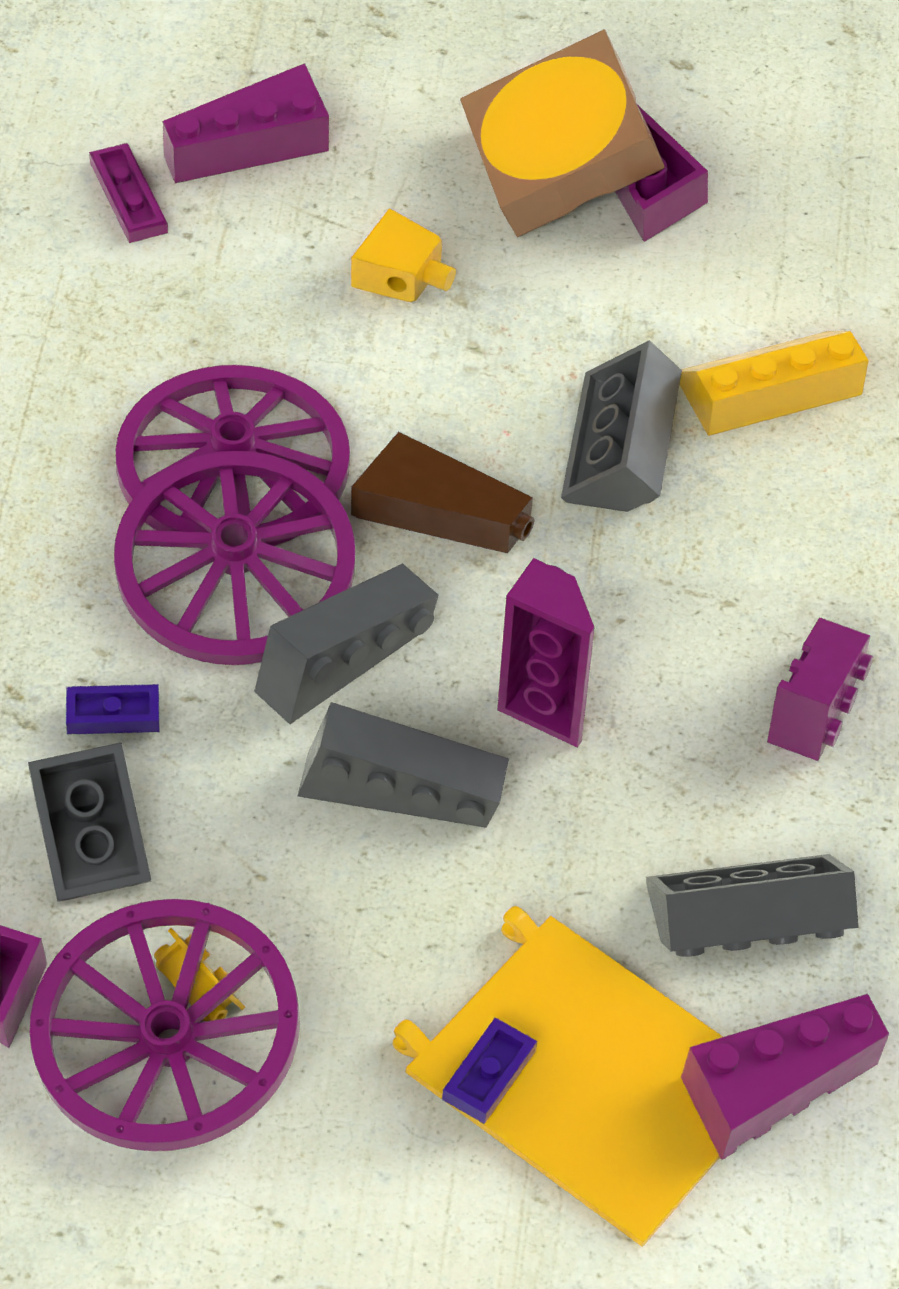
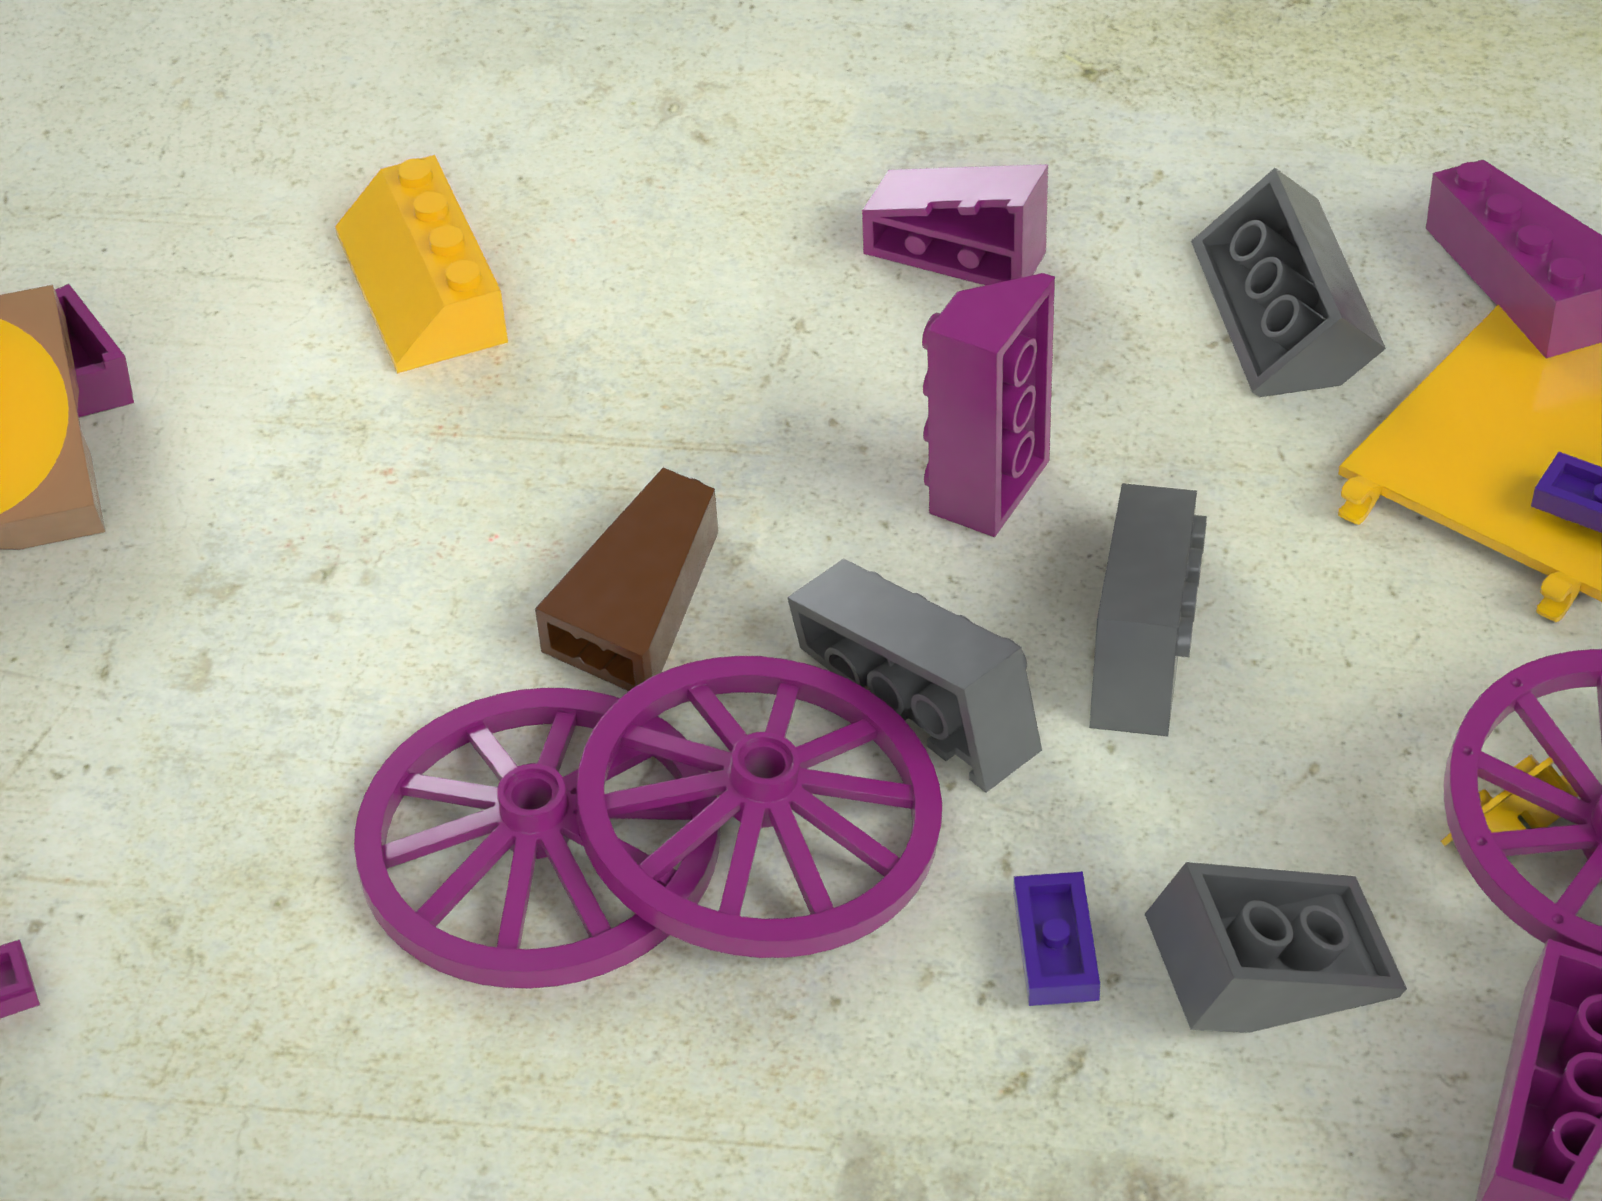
camera: 85 degrees left, 5 degrees down
(400, 260) = (152, 640): yellow torso -> none
(623, 431) = (517, 404): dark grey slope -> none

